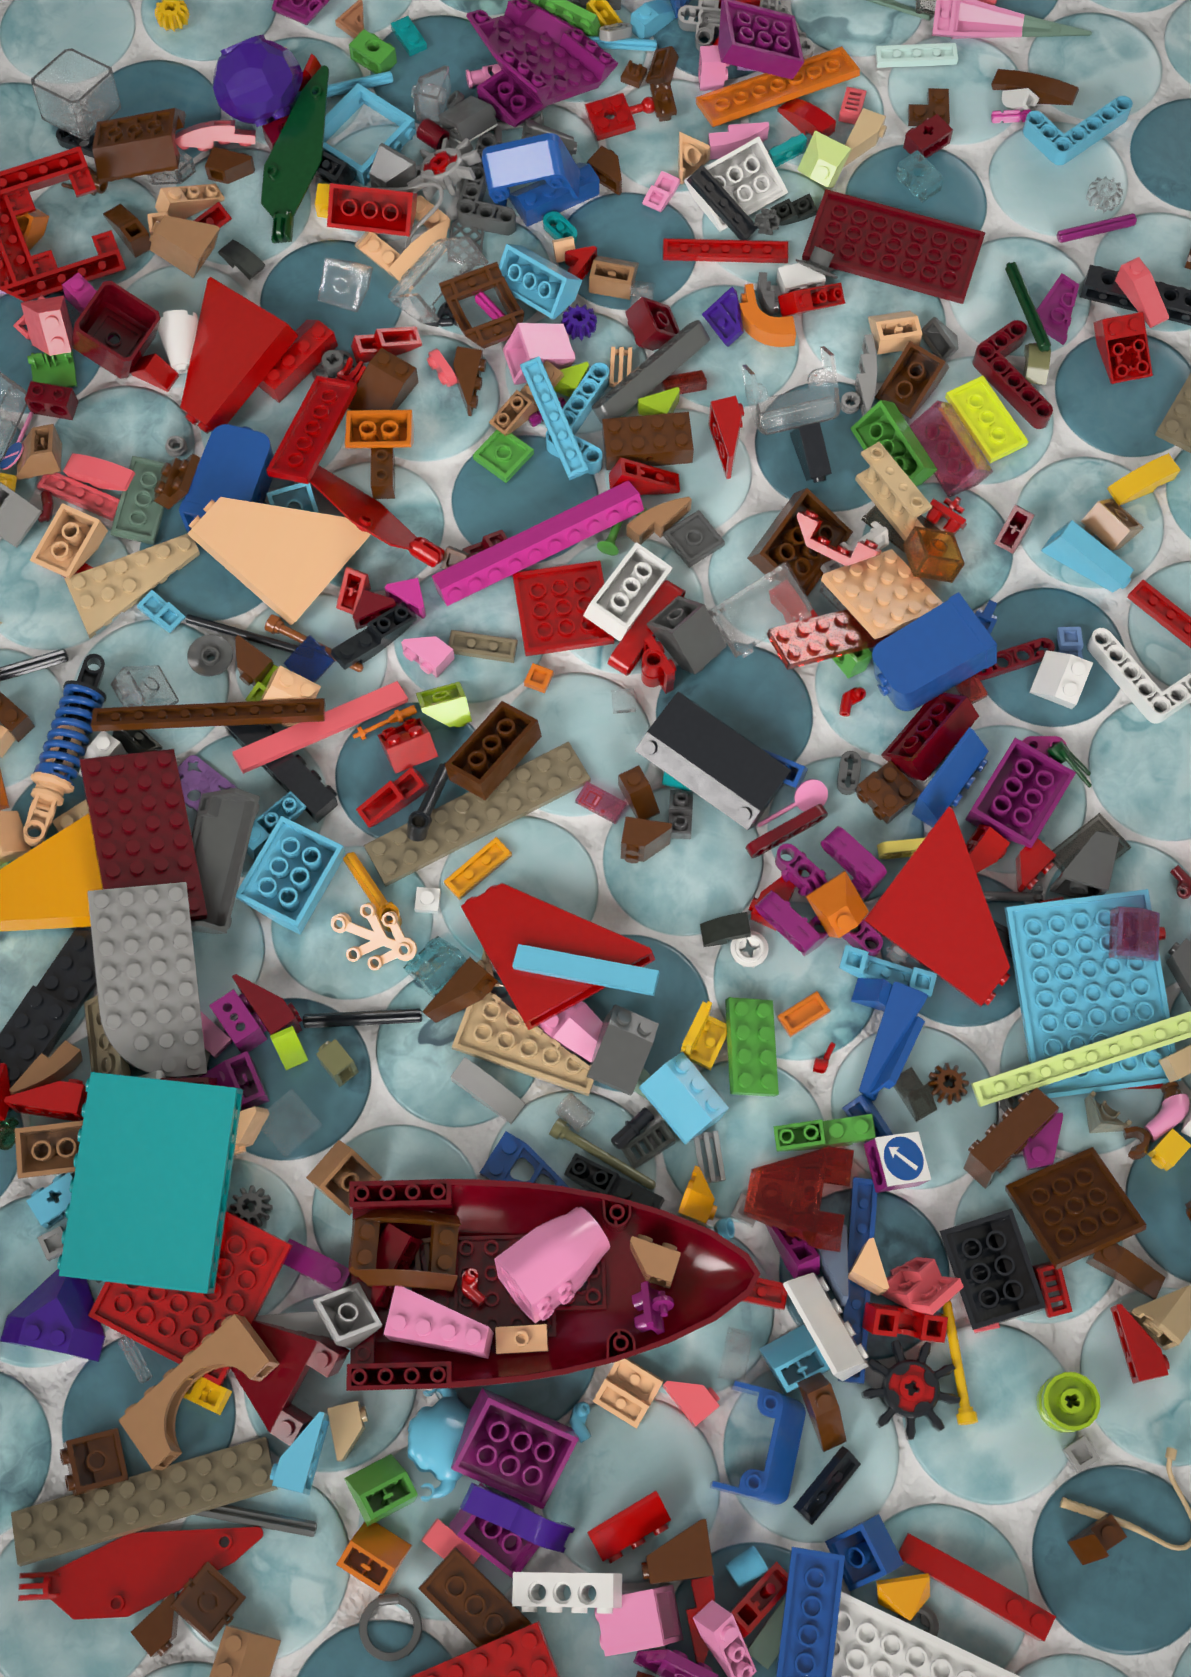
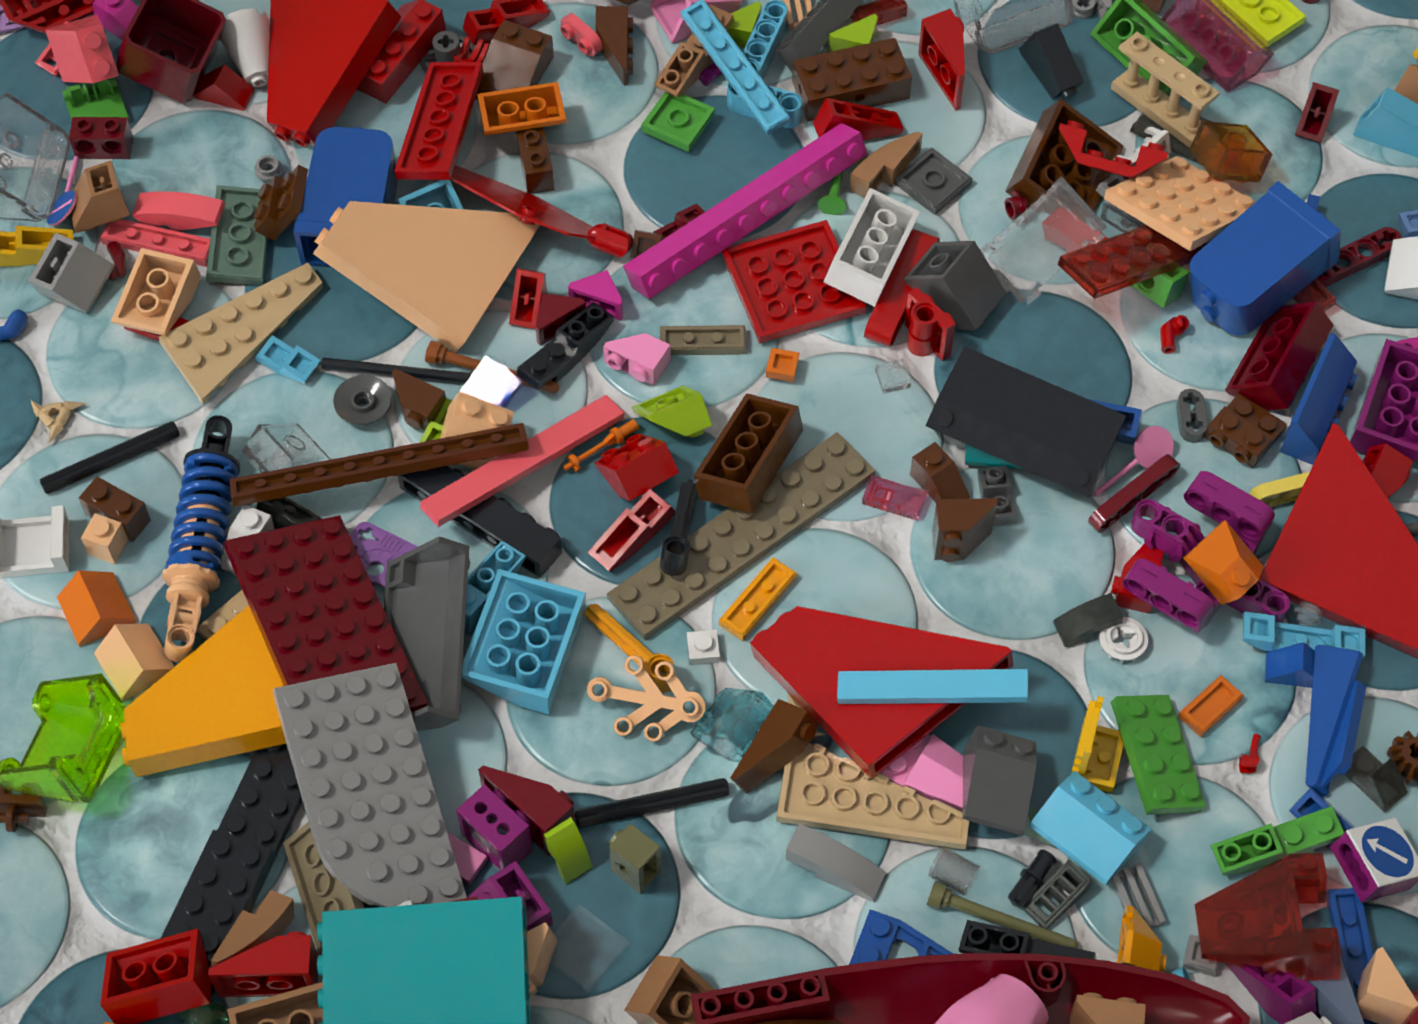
camera: 10 degrees left, 10 degrees down
(753, 572) = (1015, 205): none -> dark red plate
(938, 510) = (1233, 105): red hips -> none

